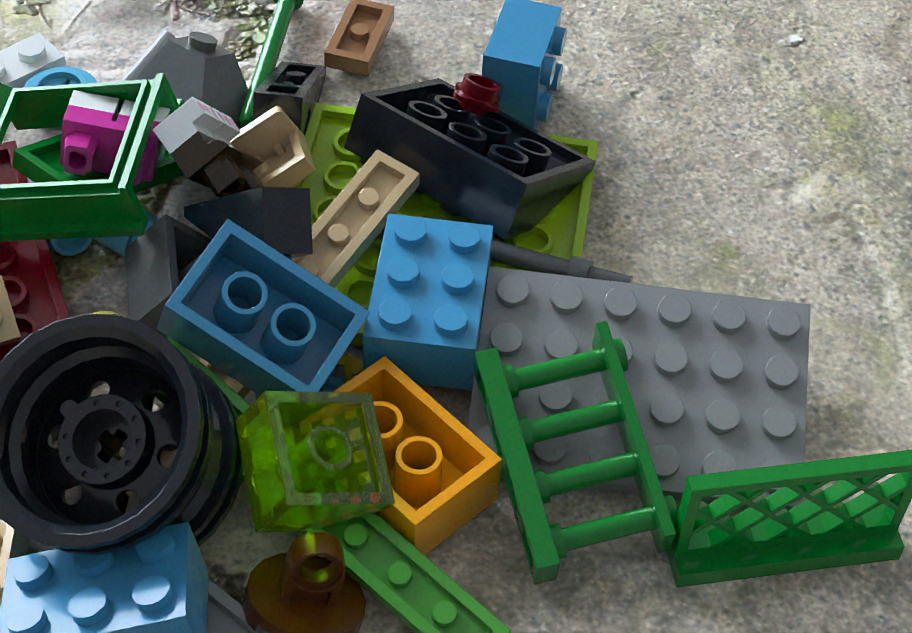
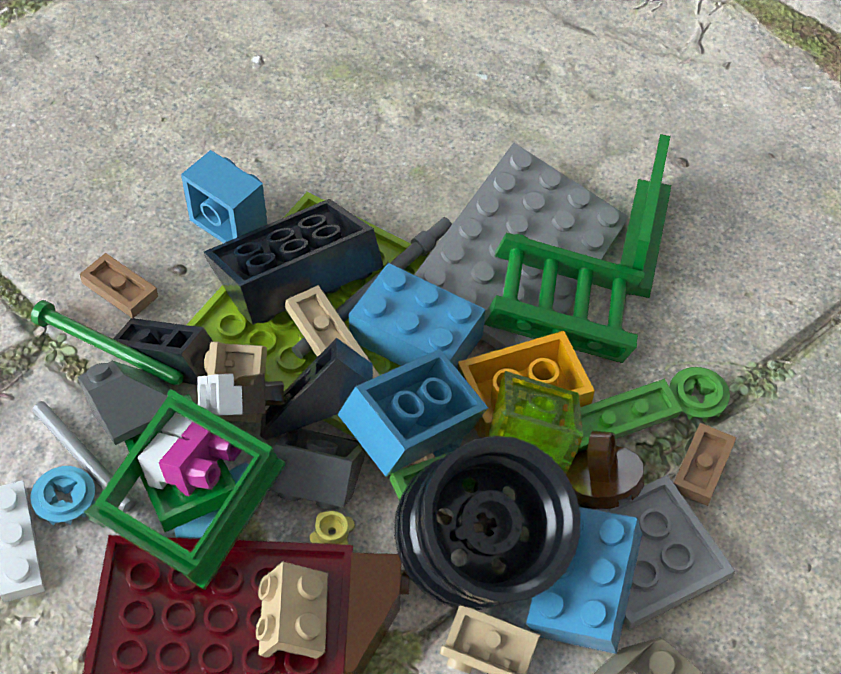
camera: 65 degrees left, 5 degrees up
(478, 94) = (249, 230): dark red plate -> none

